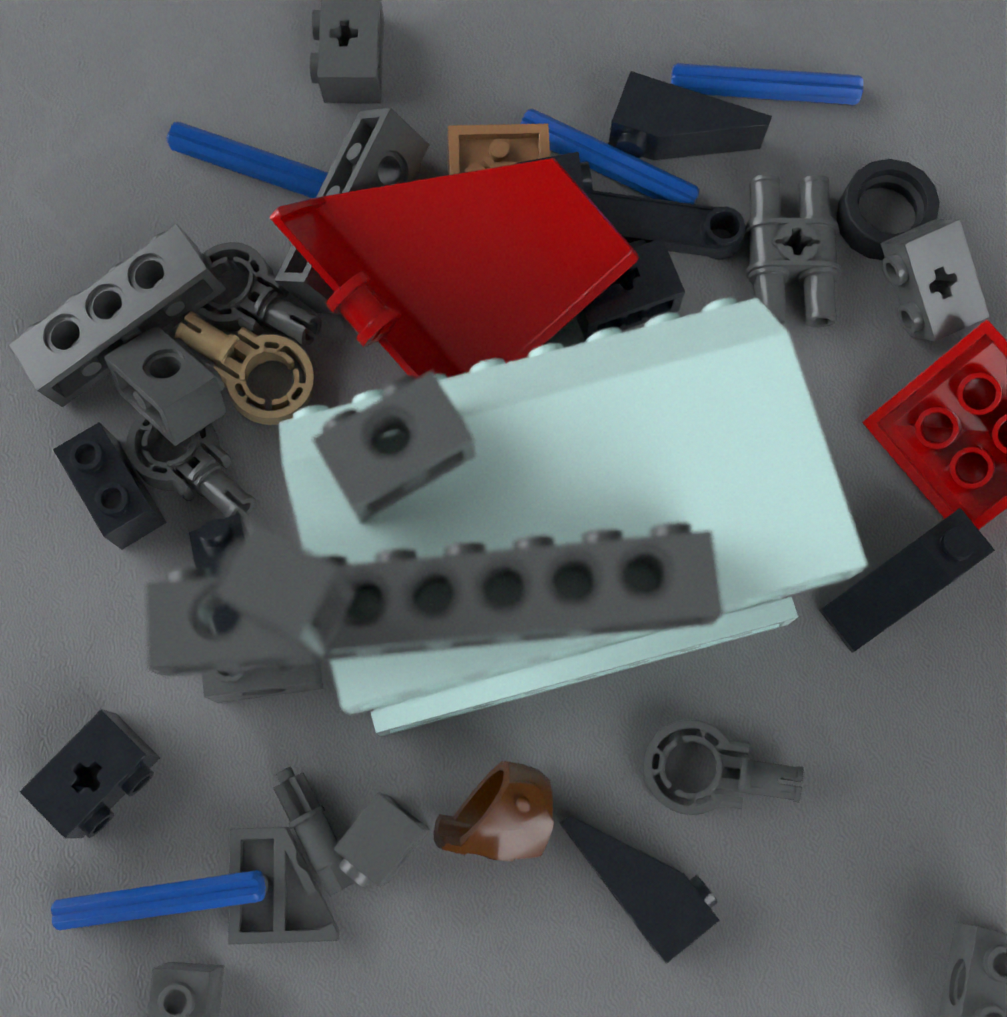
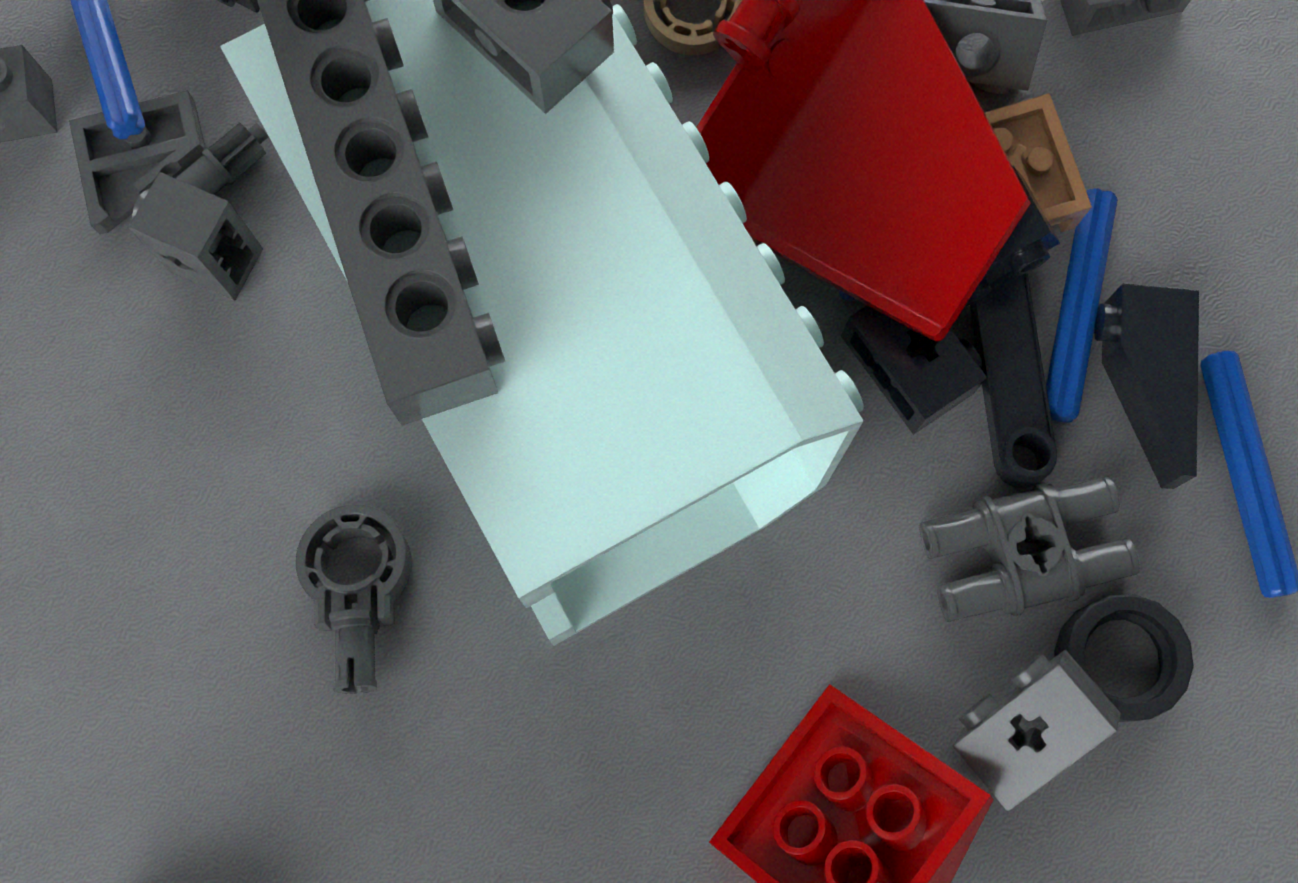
camera: 75 degrees right, 0 degrees up
(502, 817) = (245, 363): reddish brown helmet -> none
(656, 897) = (205, 538): black slope -> none
(907, 580) = (635, 773): black slope -> none

